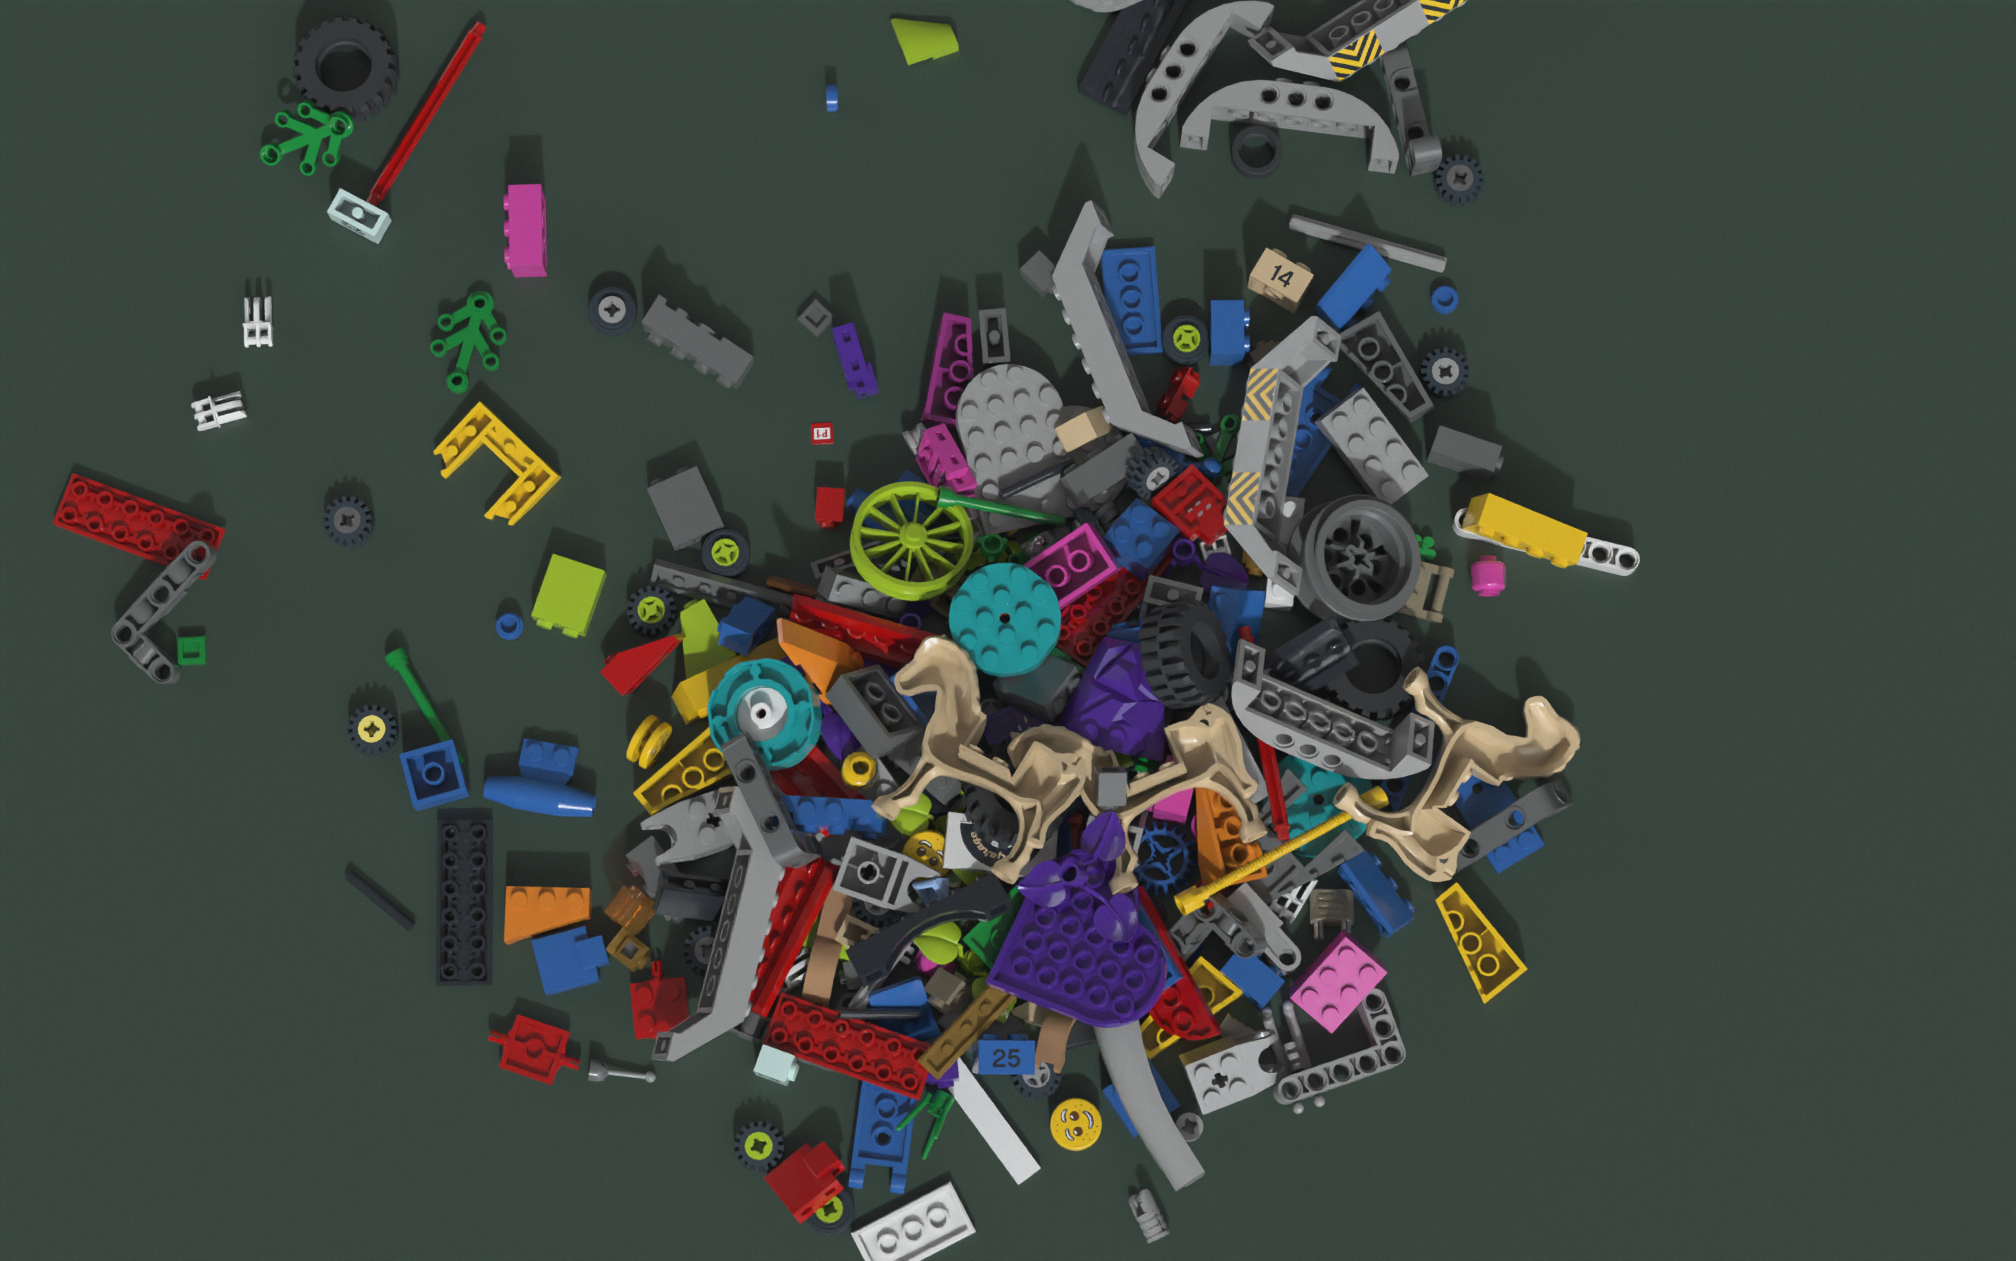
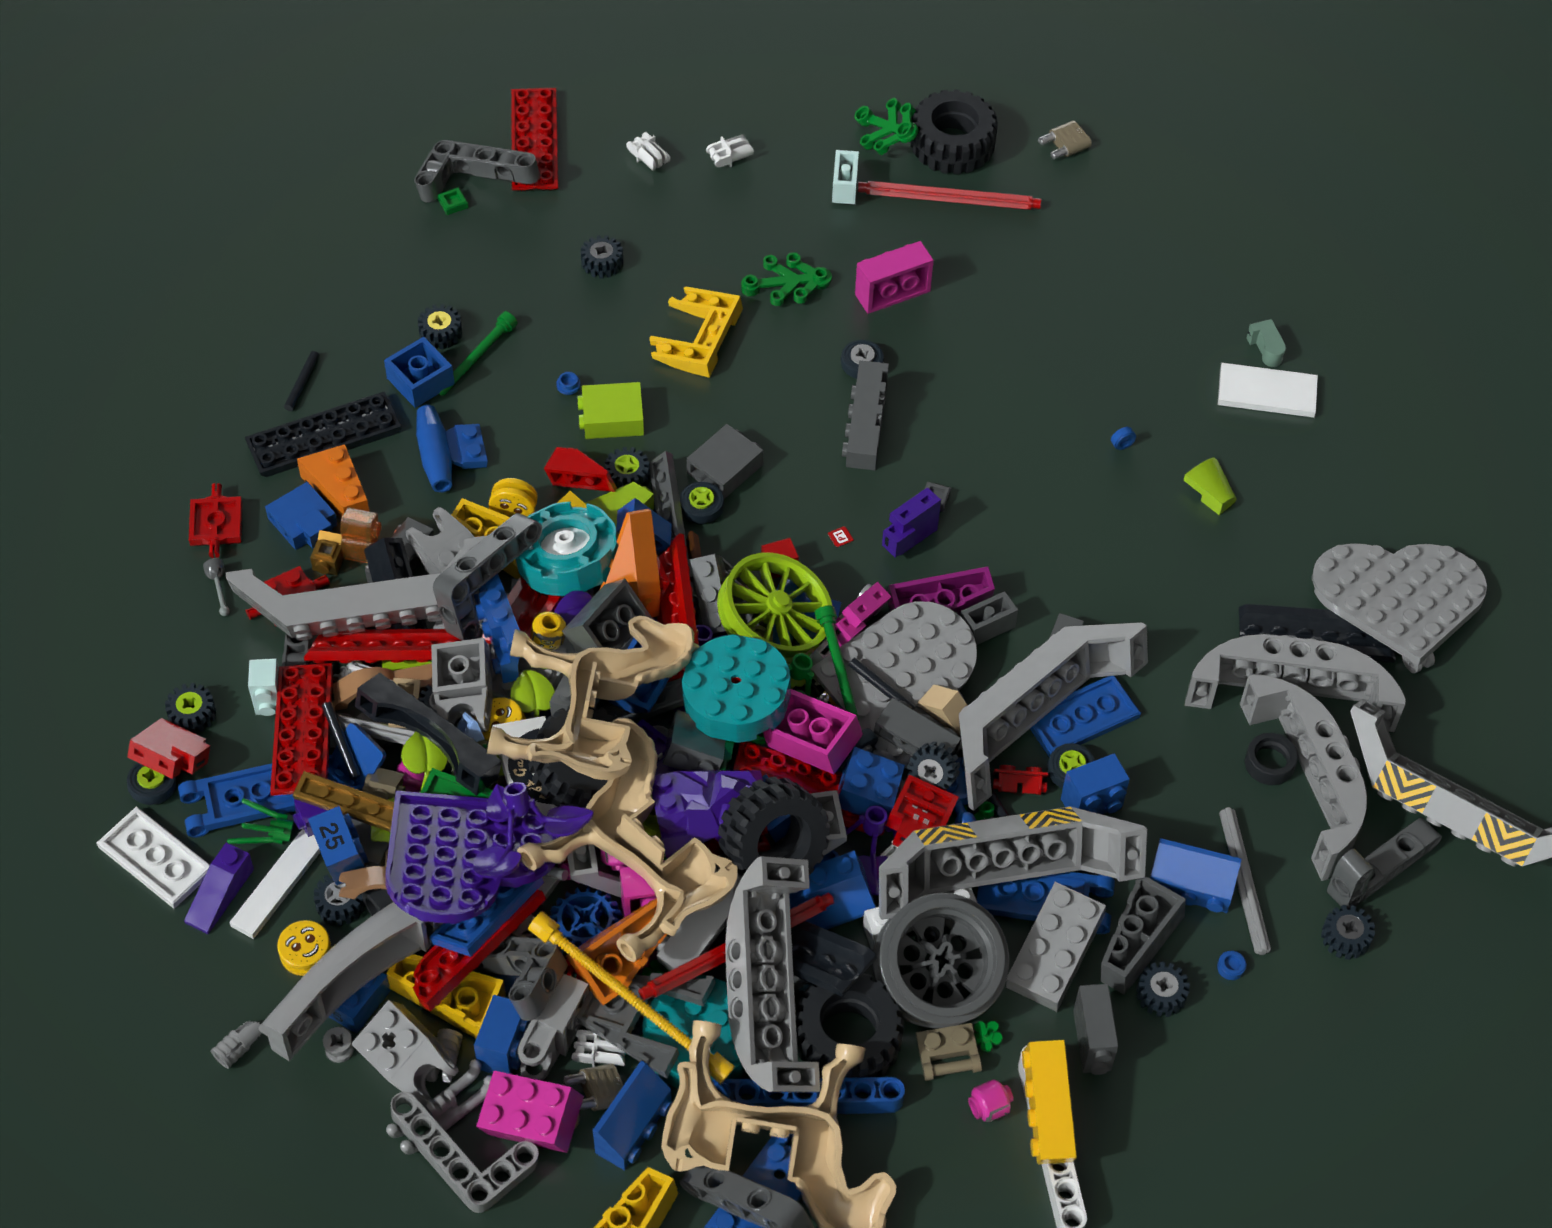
camera: 65 degrees right, 25 degrees down
(979, 1184) = (219, 887): none -> dark purple slope
(1110, 787) = (614, 803): brick -> none
(1280, 279) = (1168, 811): tan brick -> none

